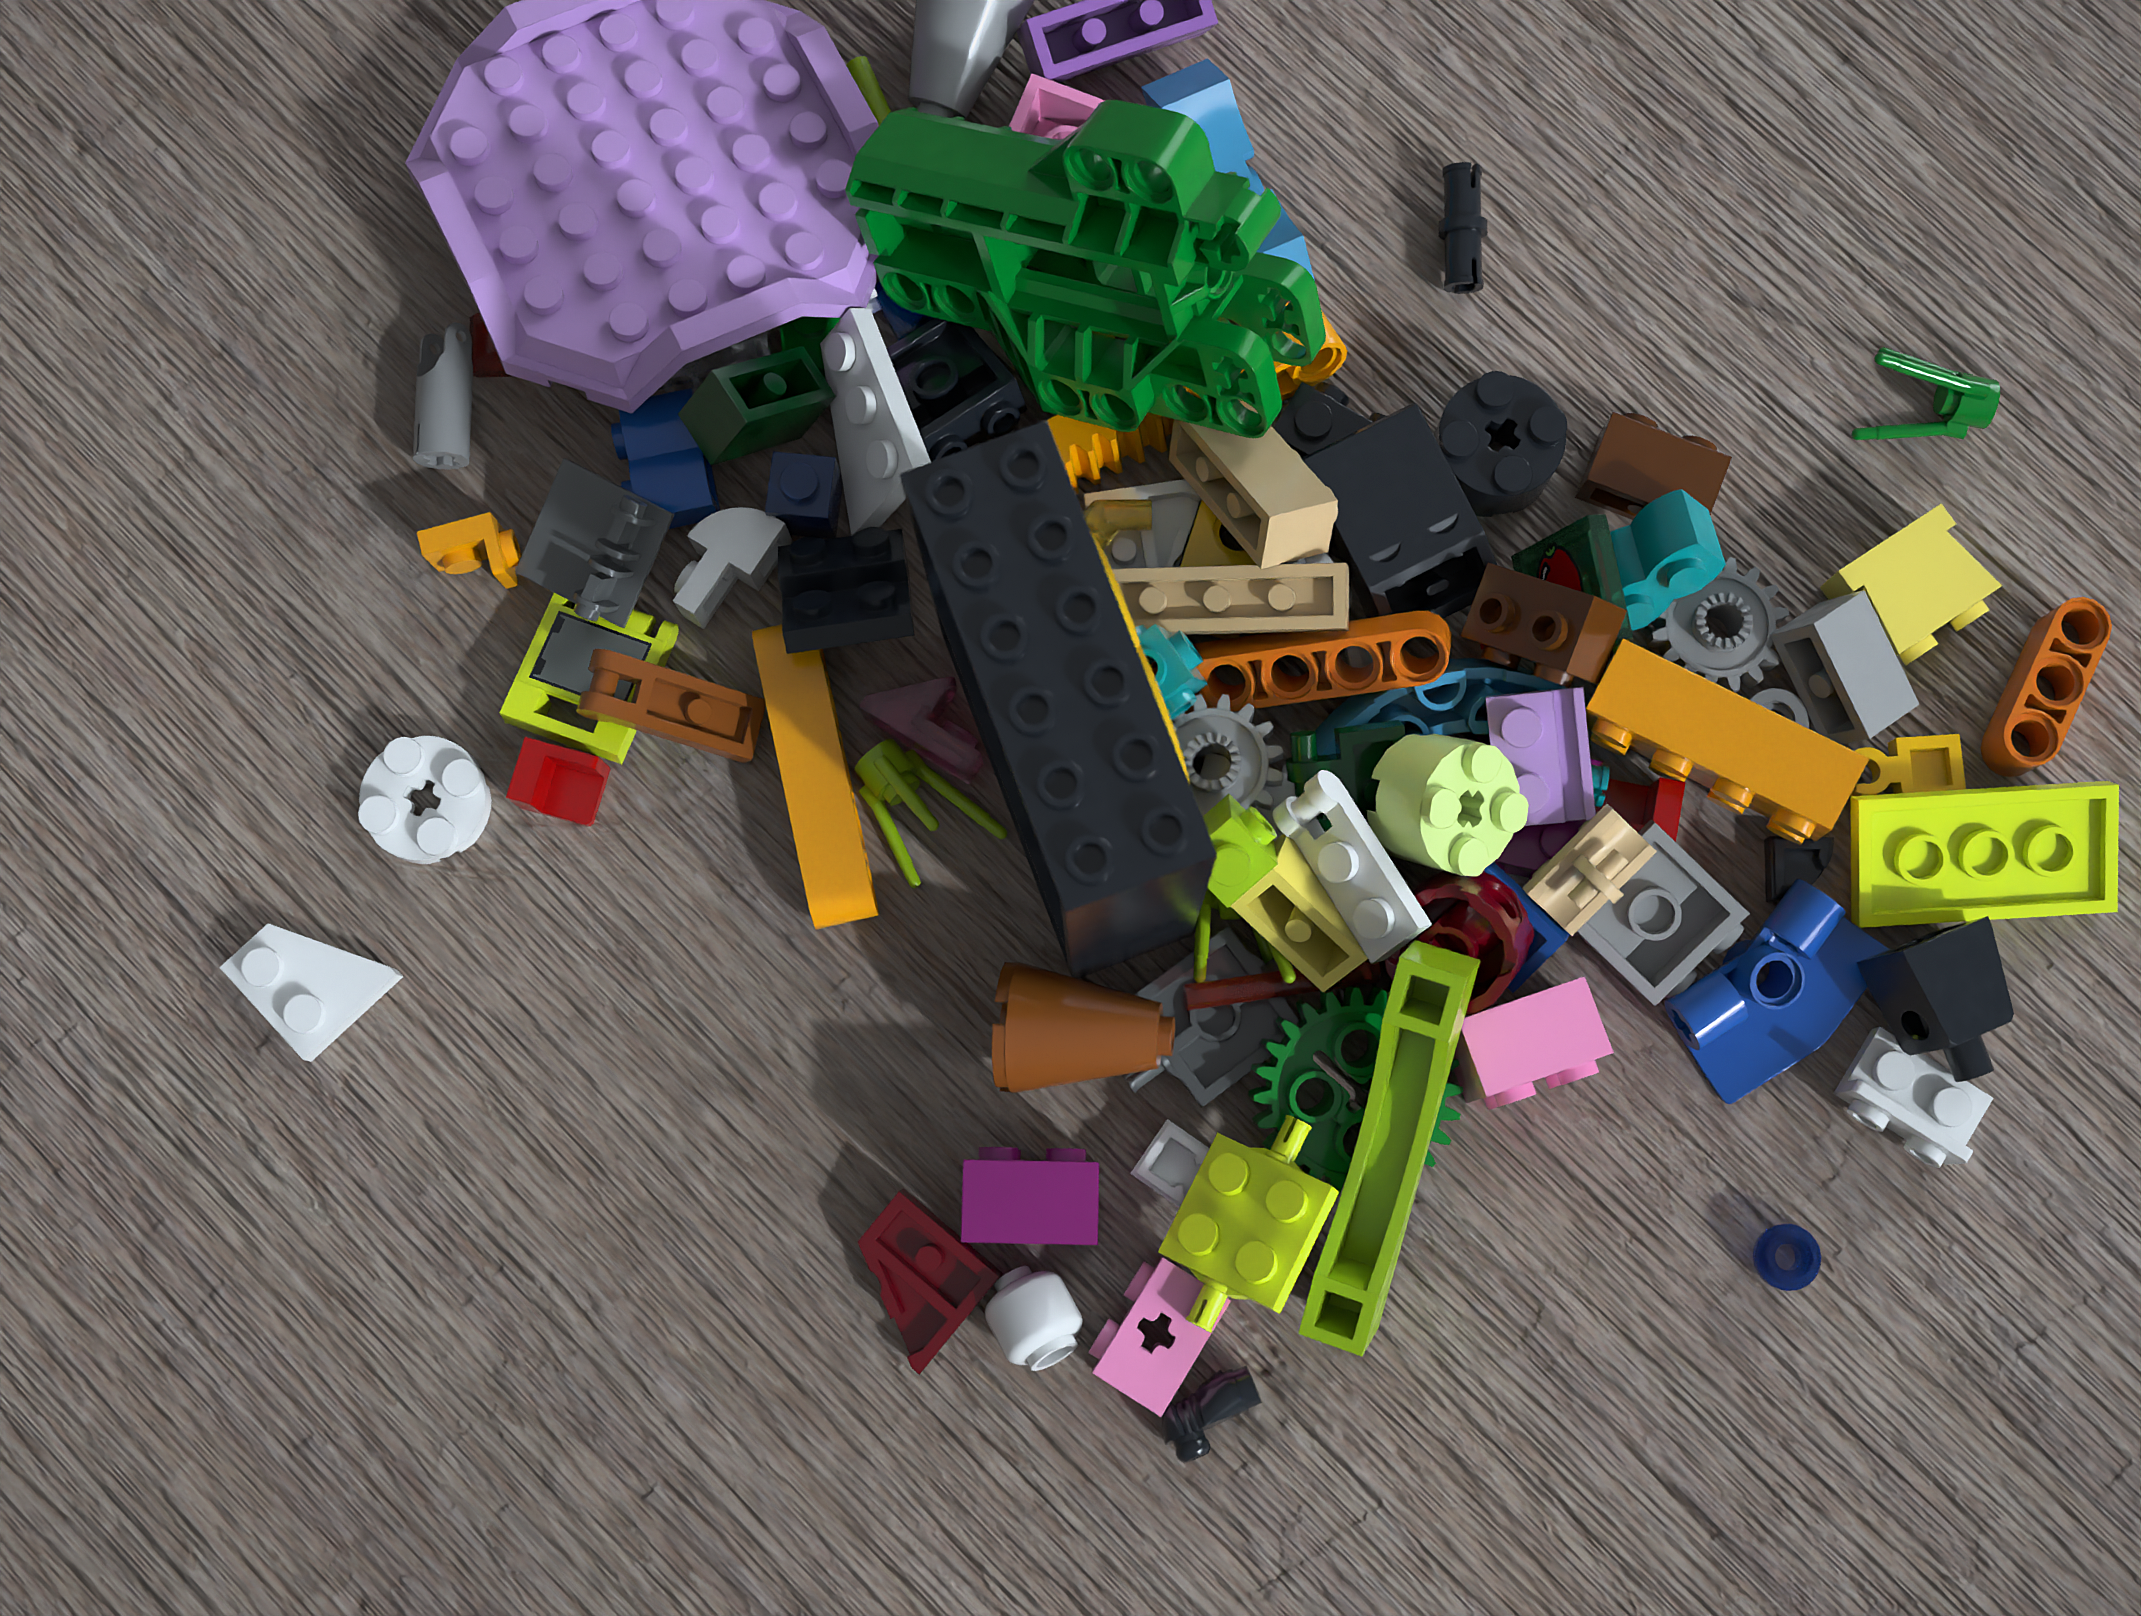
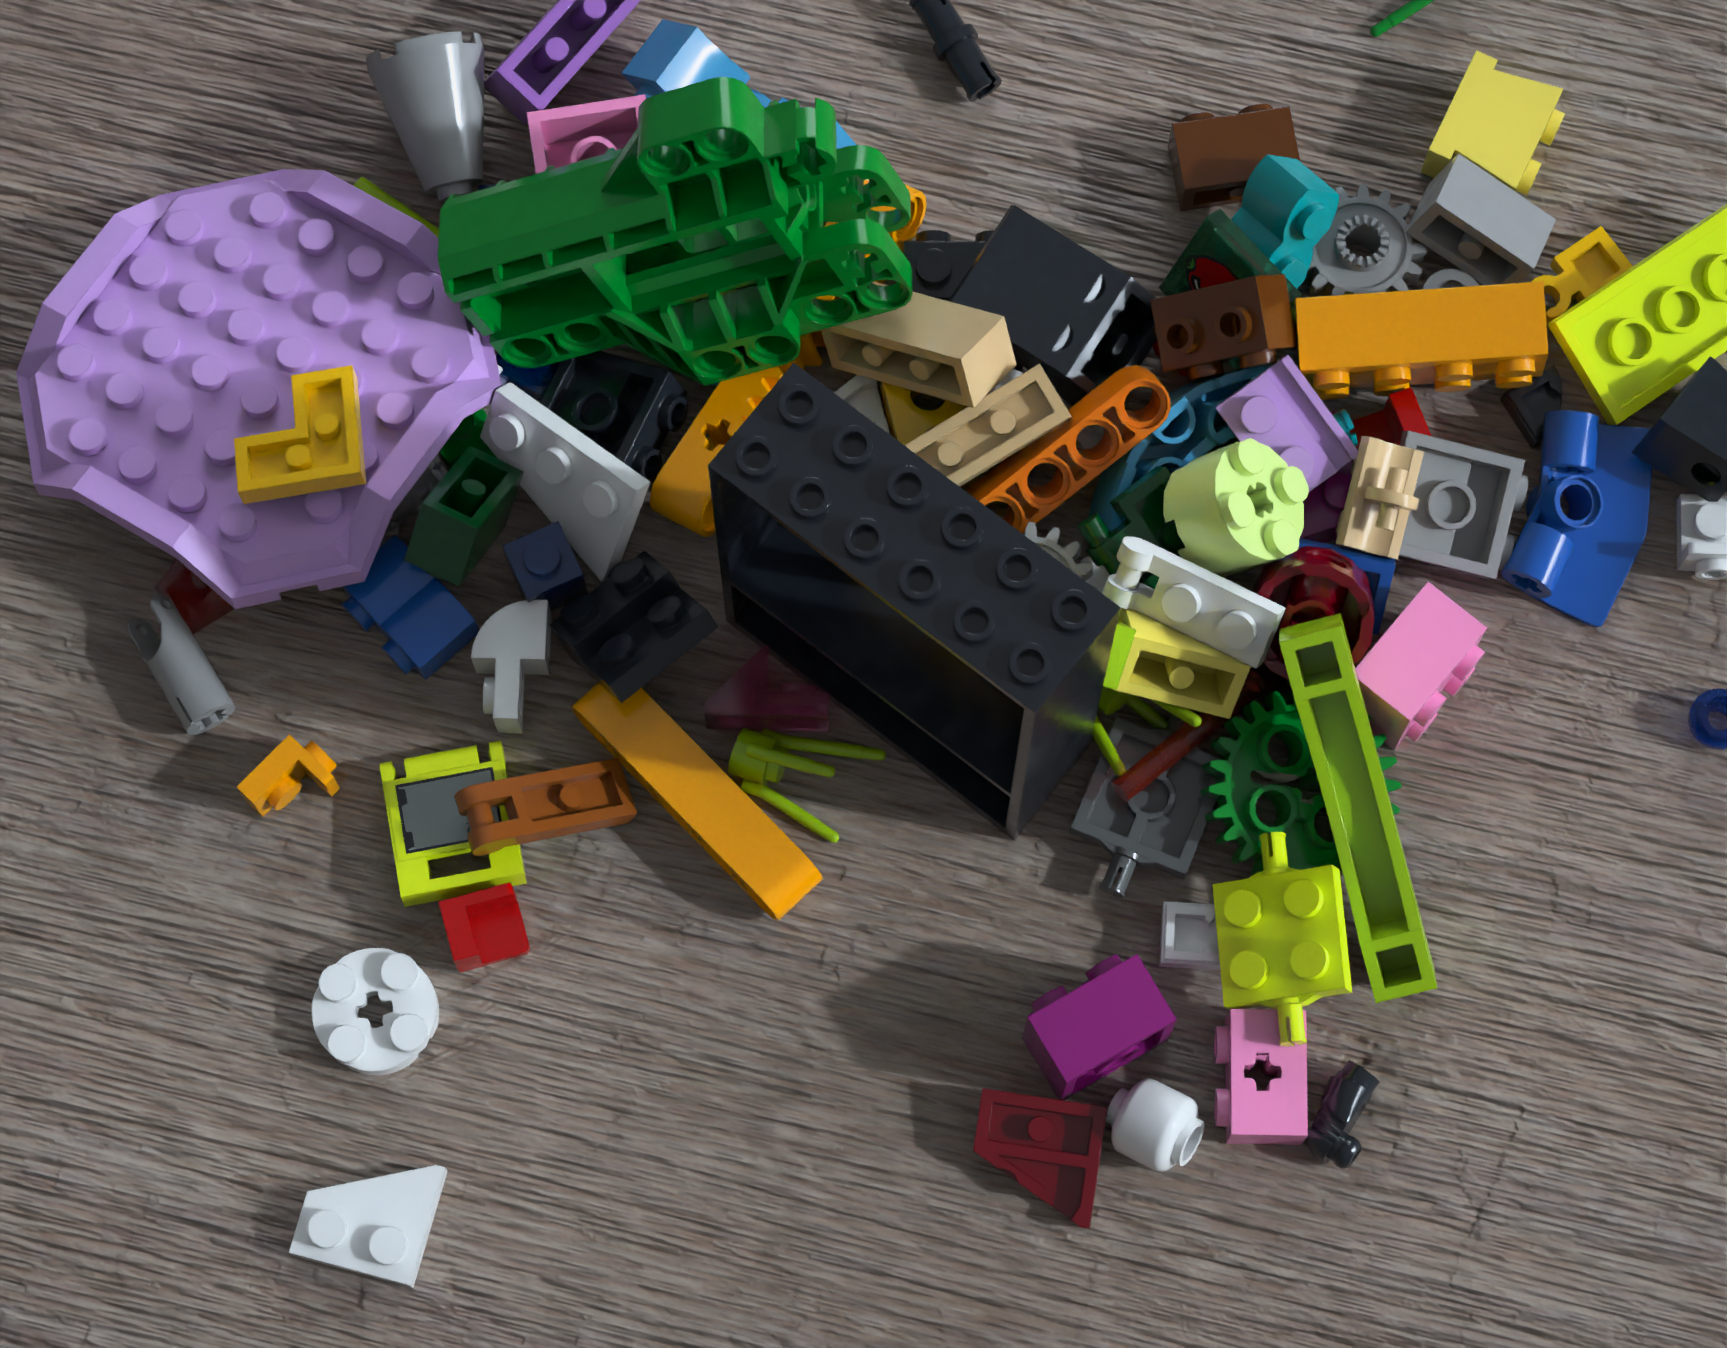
camera: 35 degrees left, 5 degrees down
(594, 543) = (394, 709): dark grey hinge -> none
(646, 270) = (315, 455): none -> yellow plate
(1072, 1030) = (1047, 870): dark orange cone -> none
(1517, 417) = (1103, 173): black brick -> none
(2068, 670) = (1652, 125): orange beam -> none

